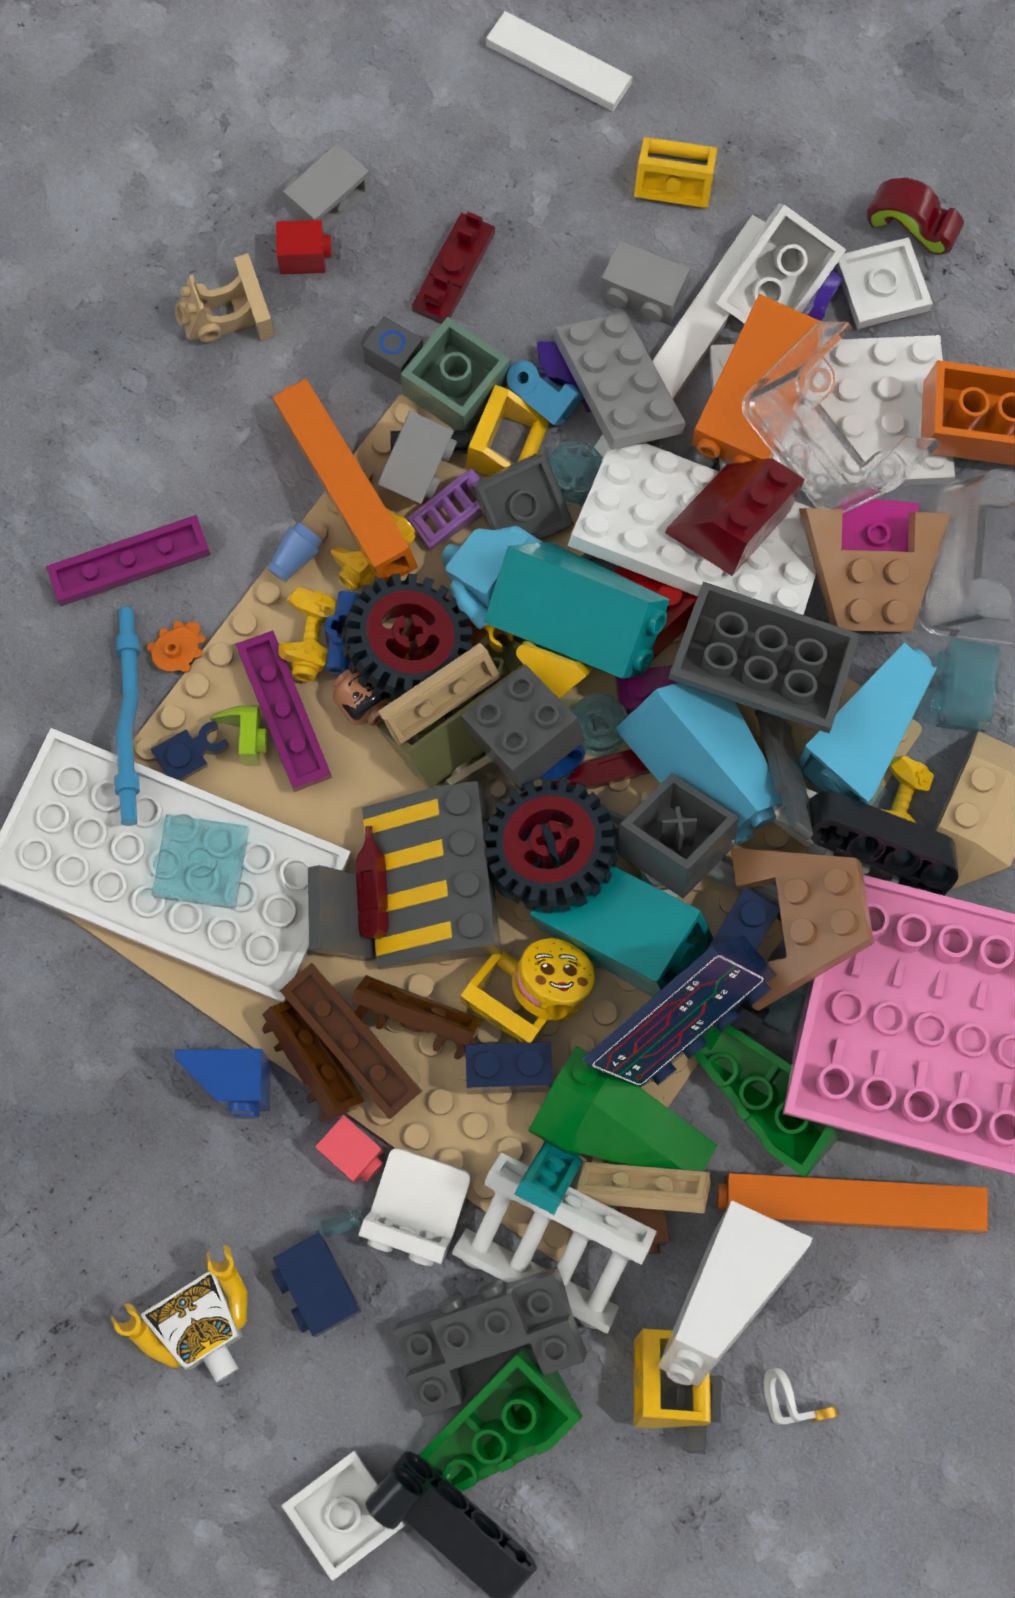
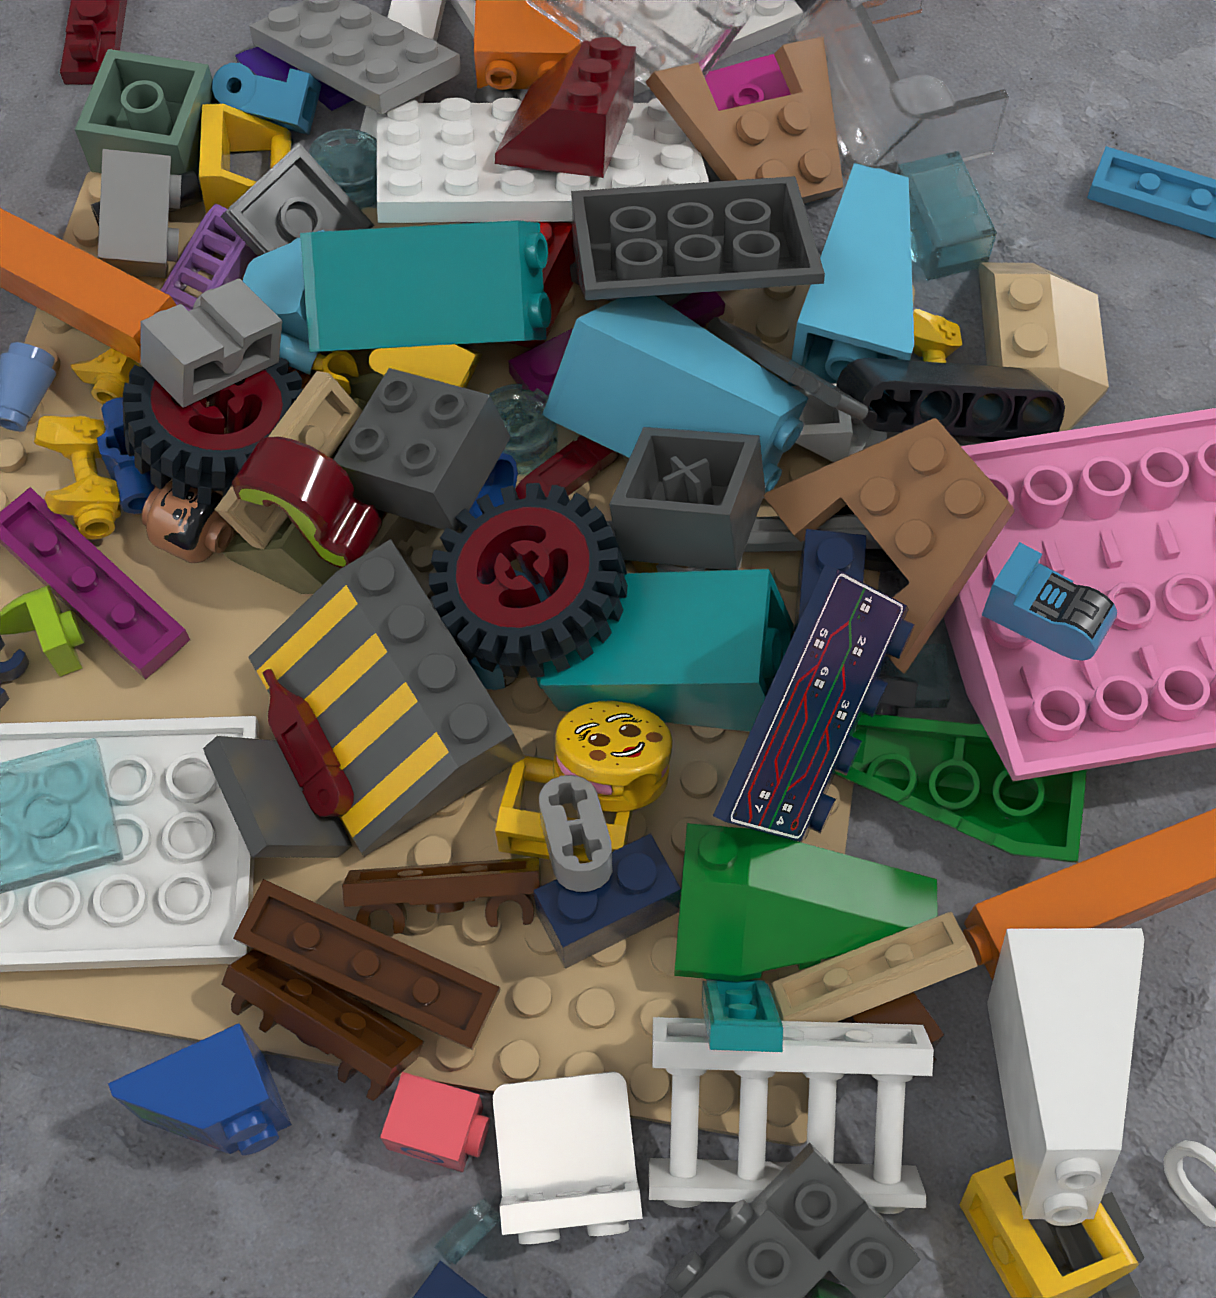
camera: 25 degrees left, 10 degrees down
(390, 348) = (47, 123): dark grey brick -> none
(422, 593) = (213, 344): none -> light grey brick
(438, 732) = (312, 494): none -> dark red animal
(513, 1024) = (588, 830): none -> light grey beam
(861, 1016) = (1049, 606): none -> dark azure leg

